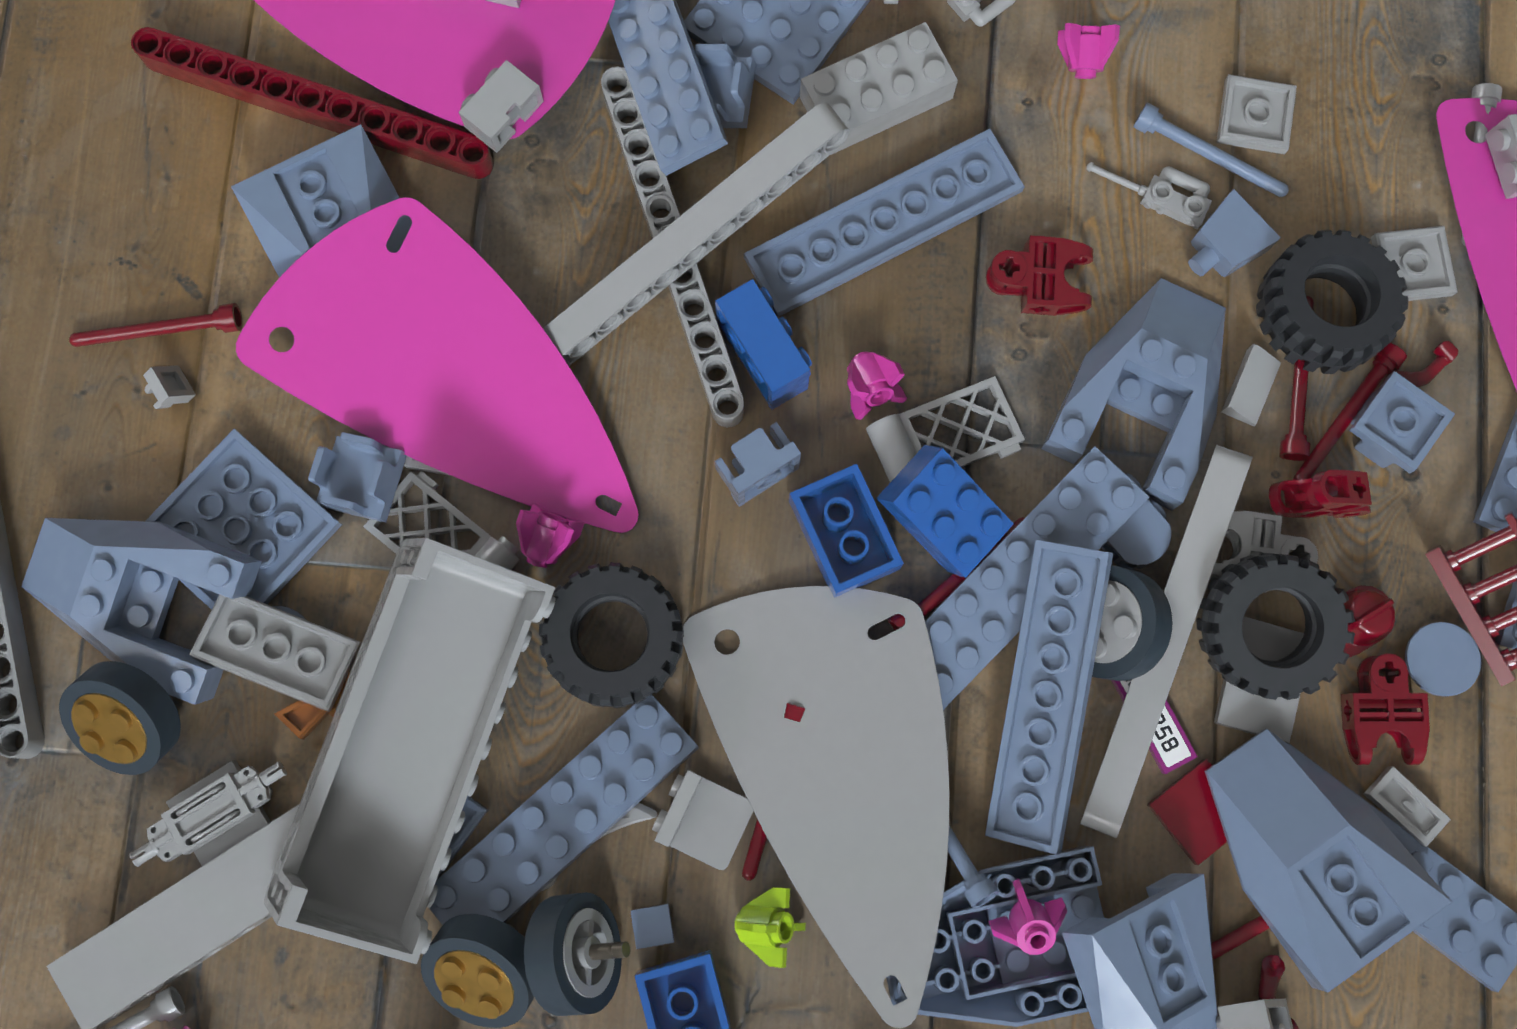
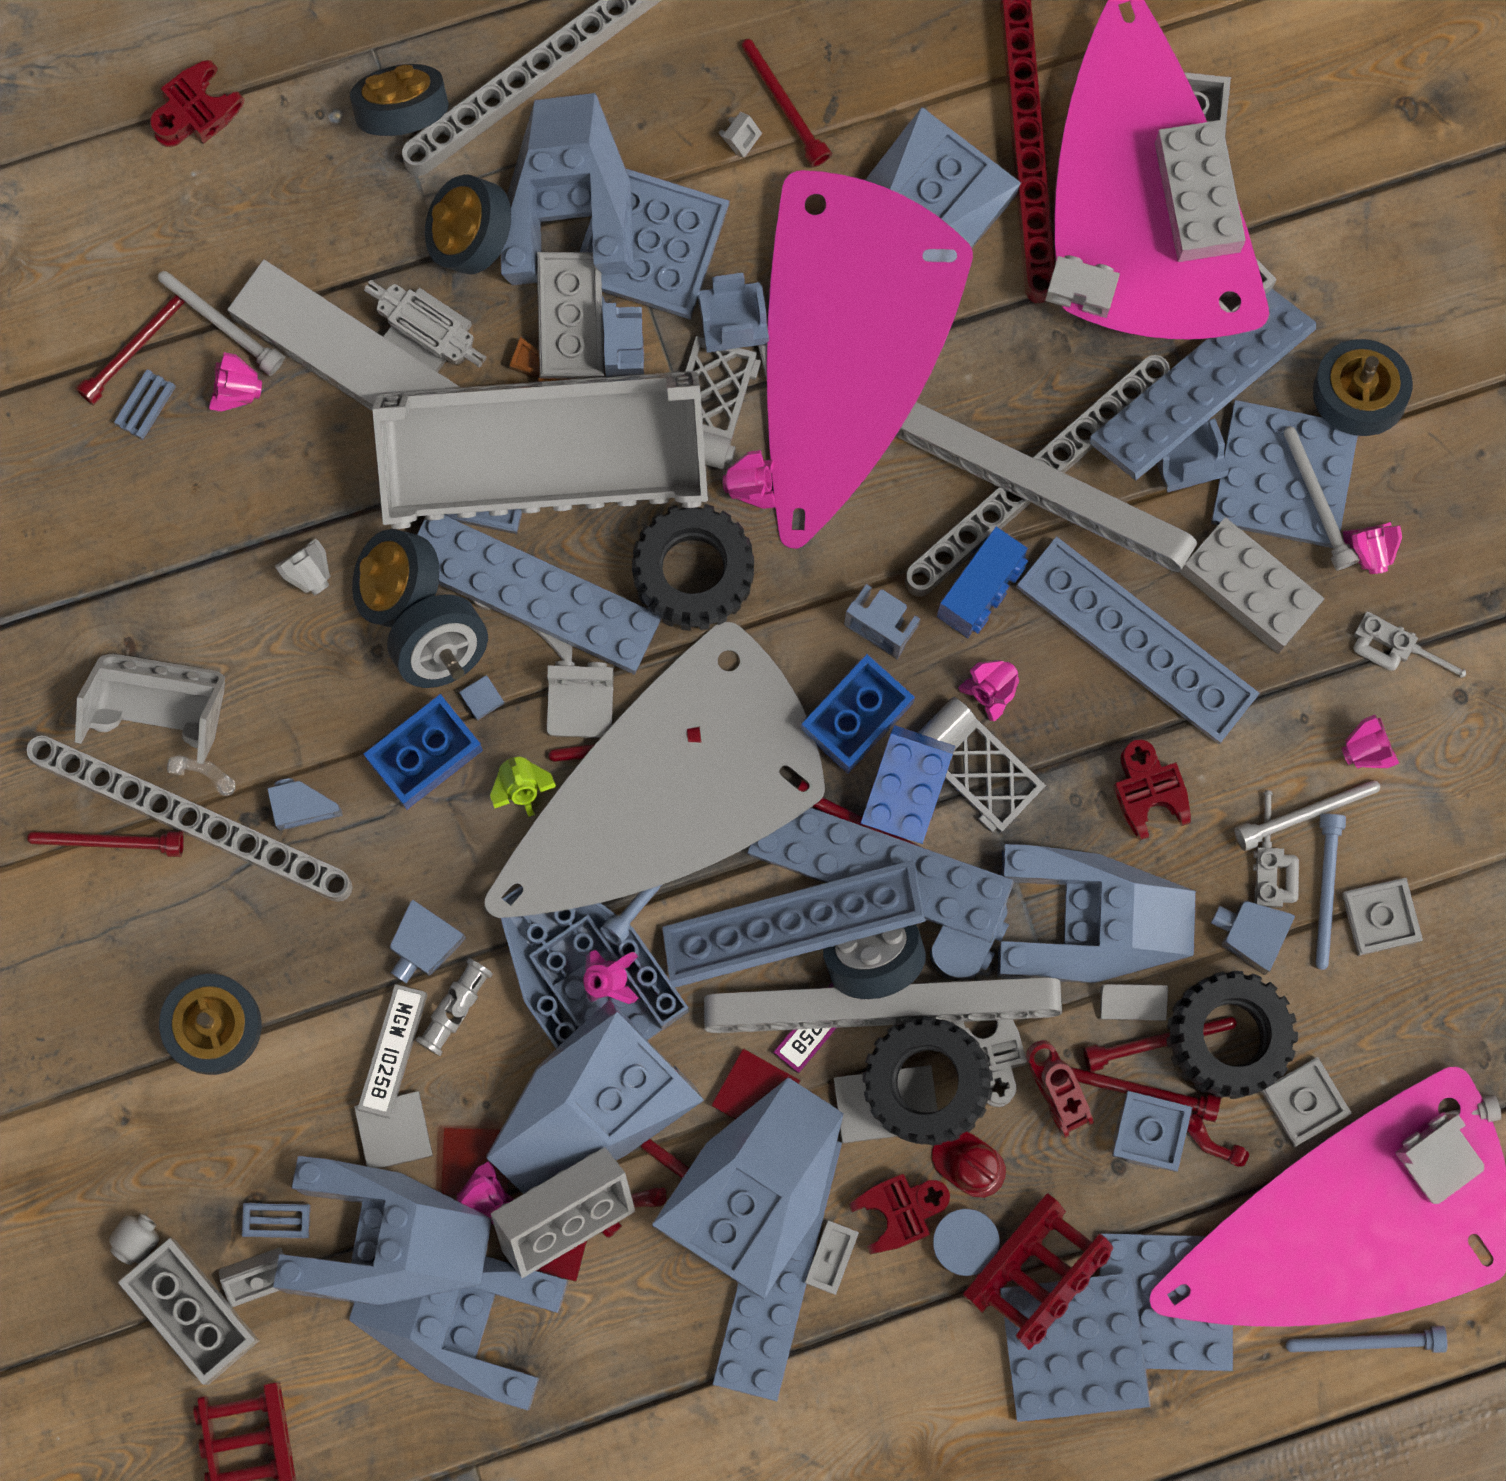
camera: 65 degrees right, 0 degrees up
(331, 604) = (623, 340): none -> sand blue panel
(1130, 199) = (1250, 835): none -> light grey piece

